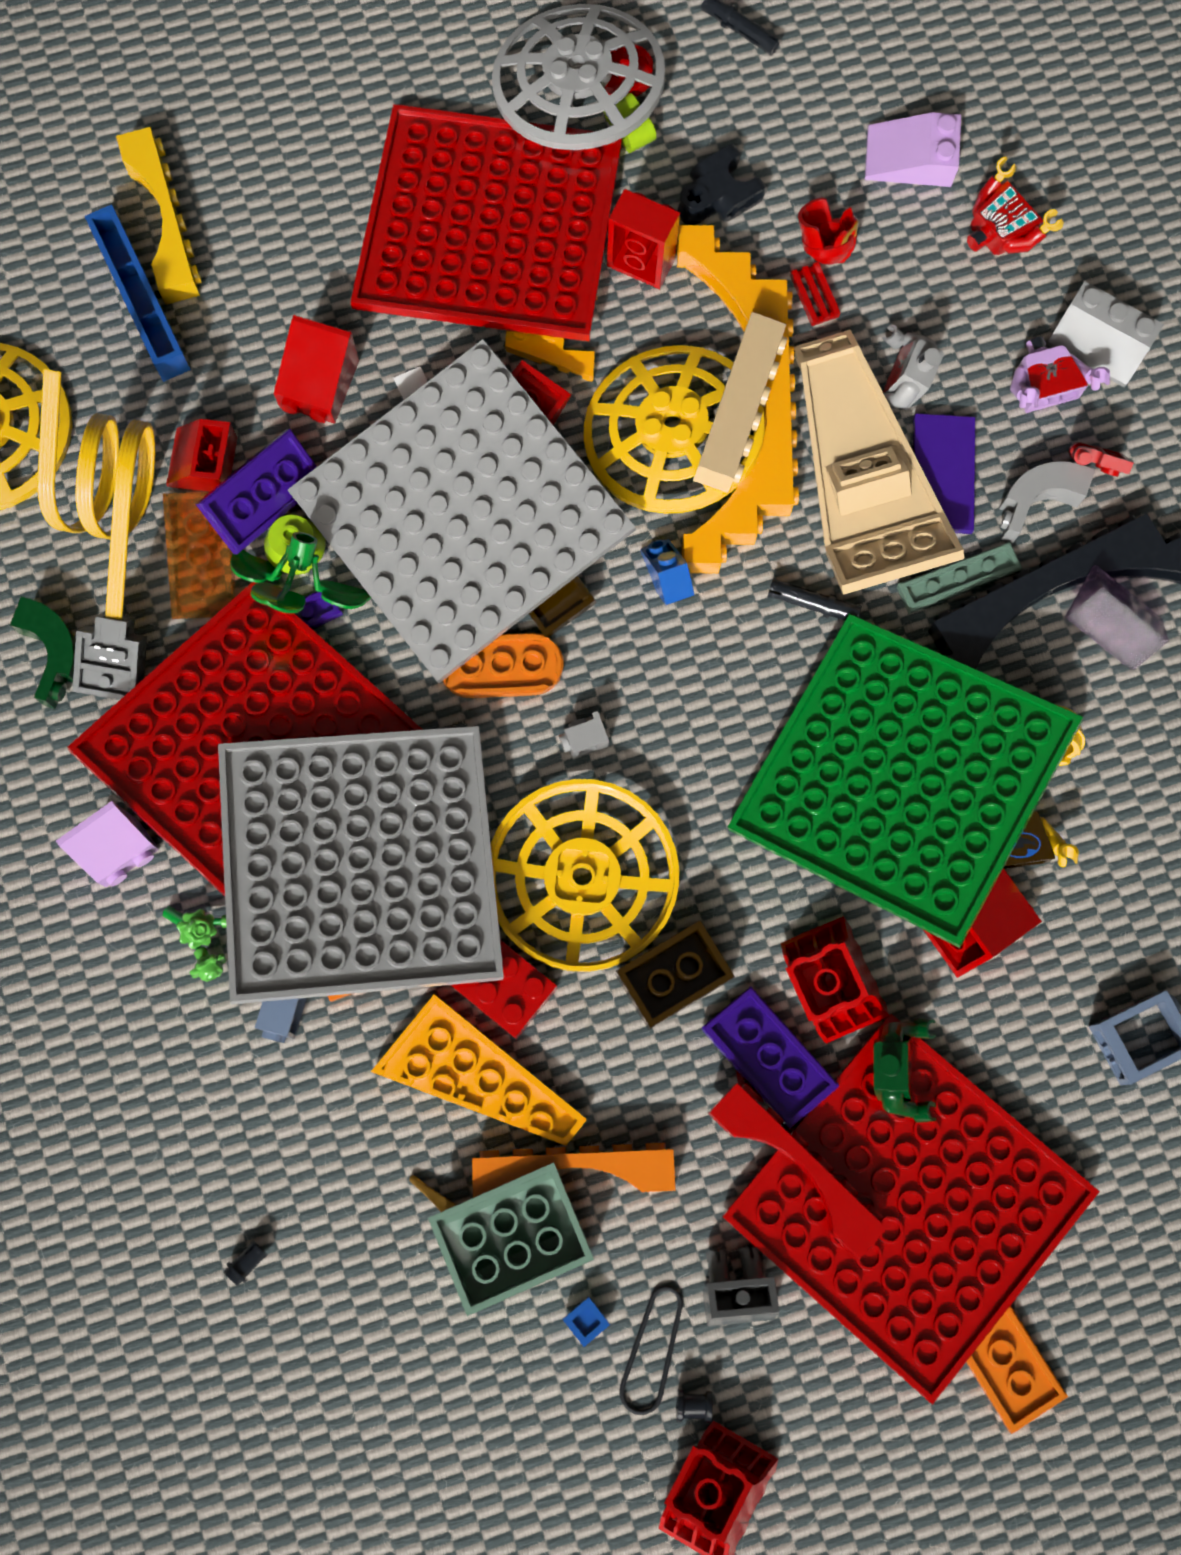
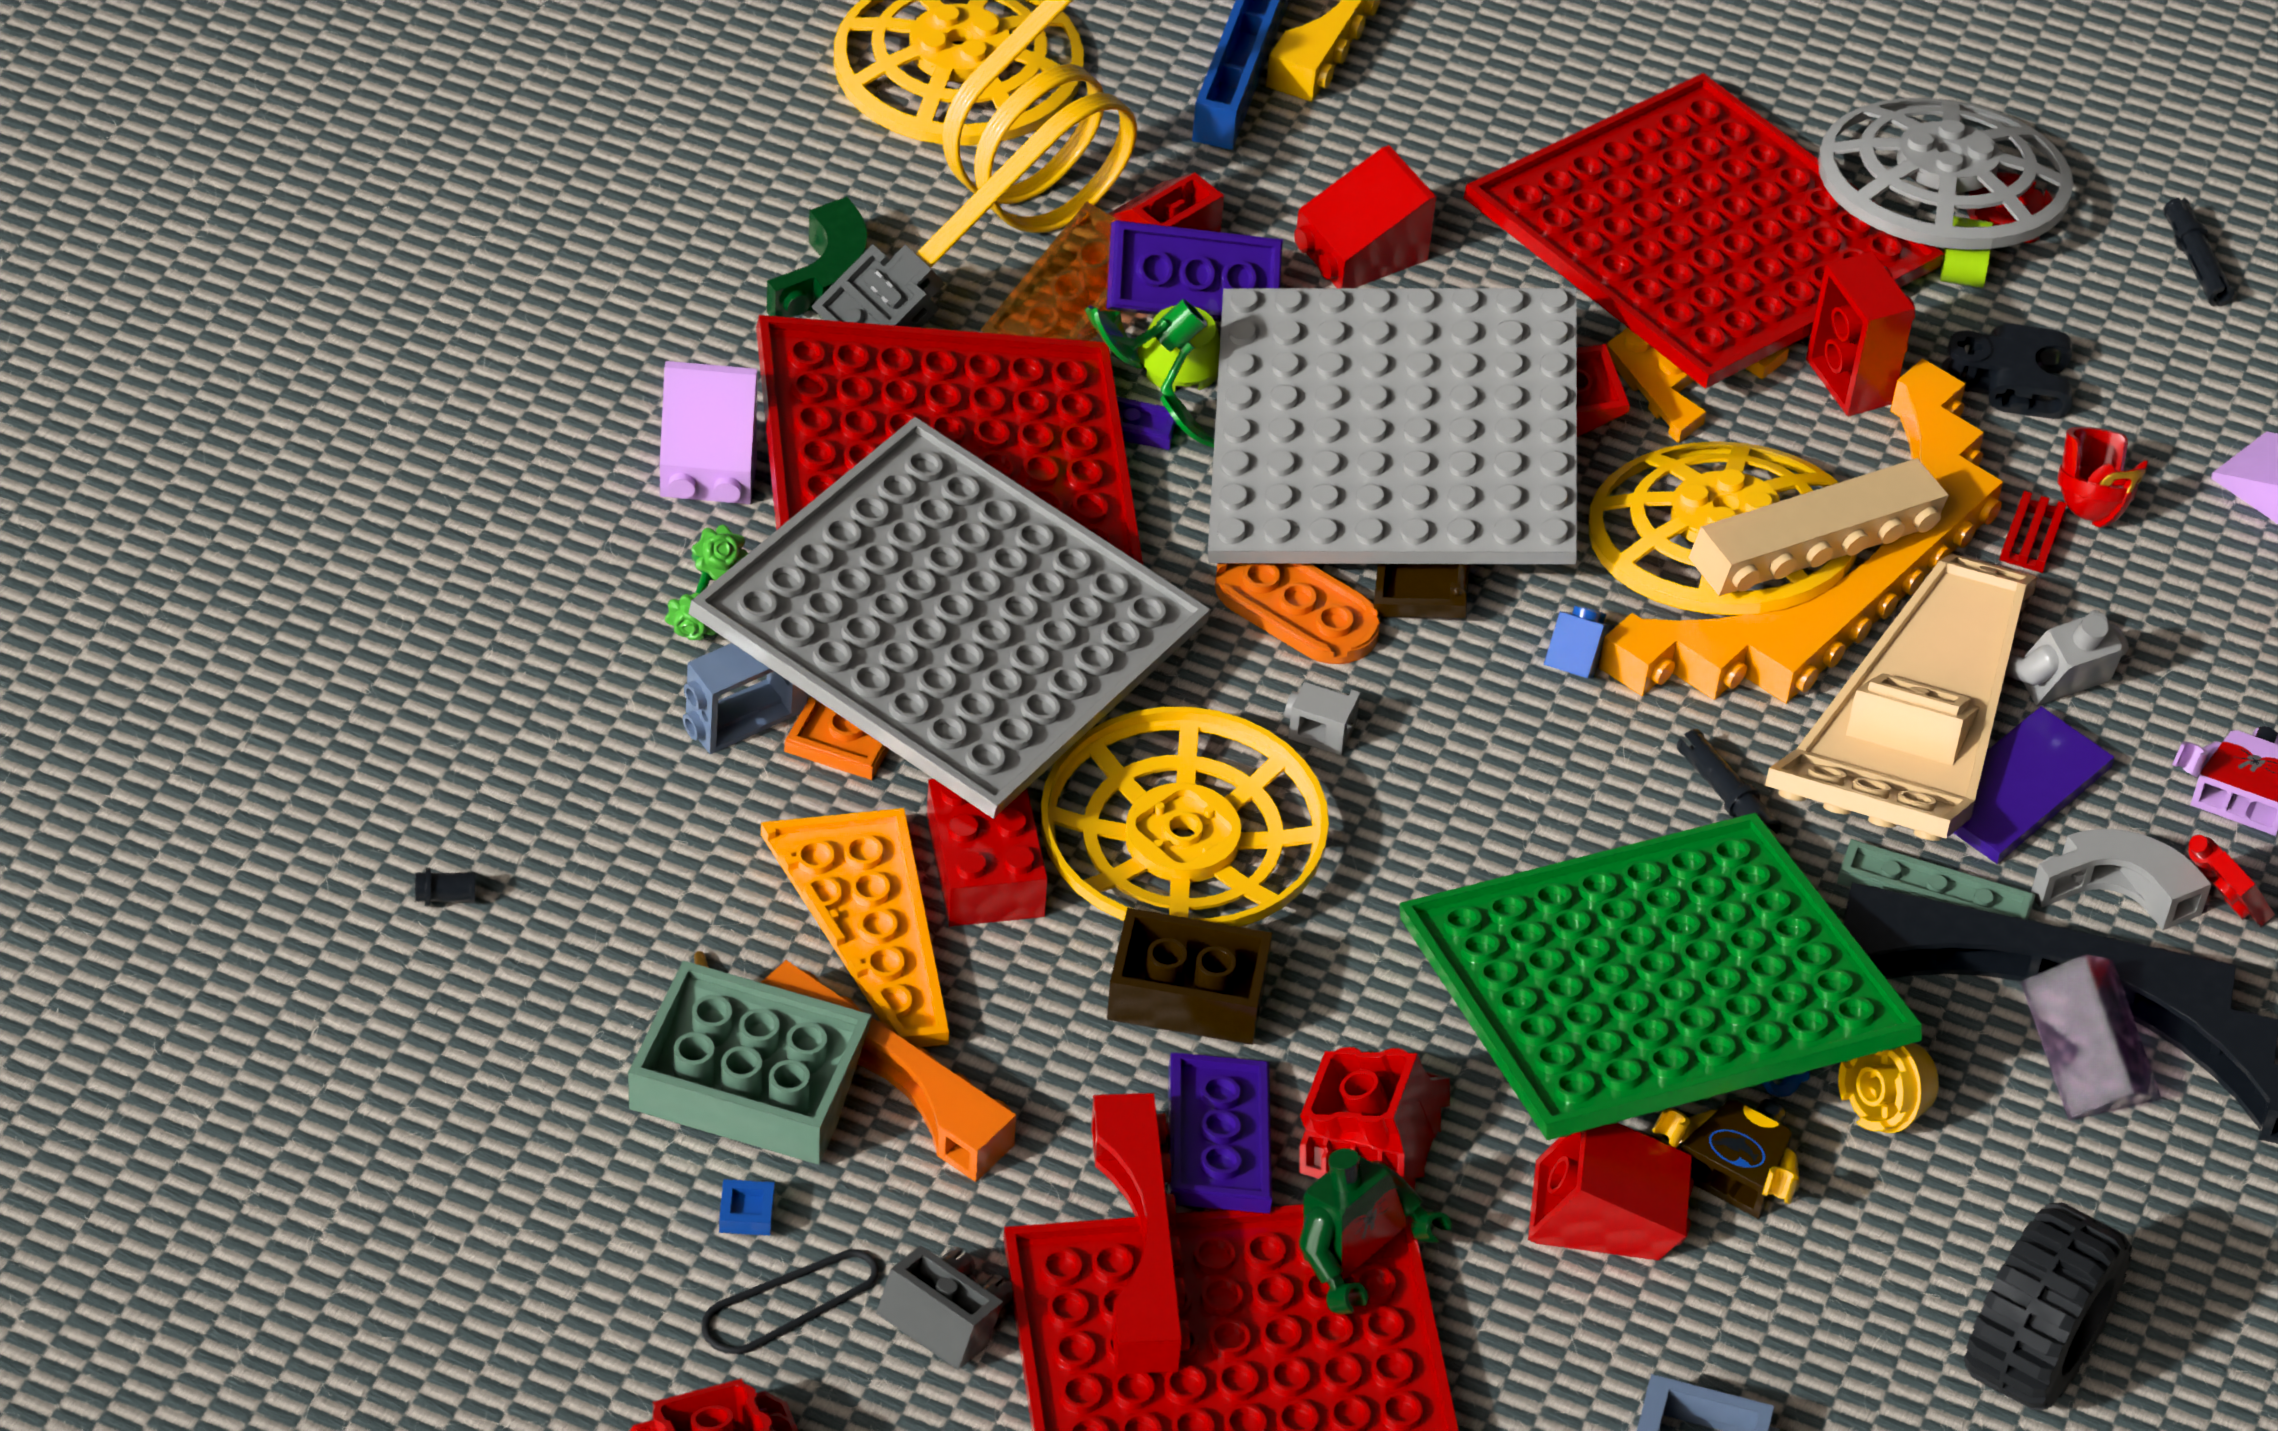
camera: 40 degrees right, 30 degrees down
(694, 1406) = (780, 1370): black bush -> none

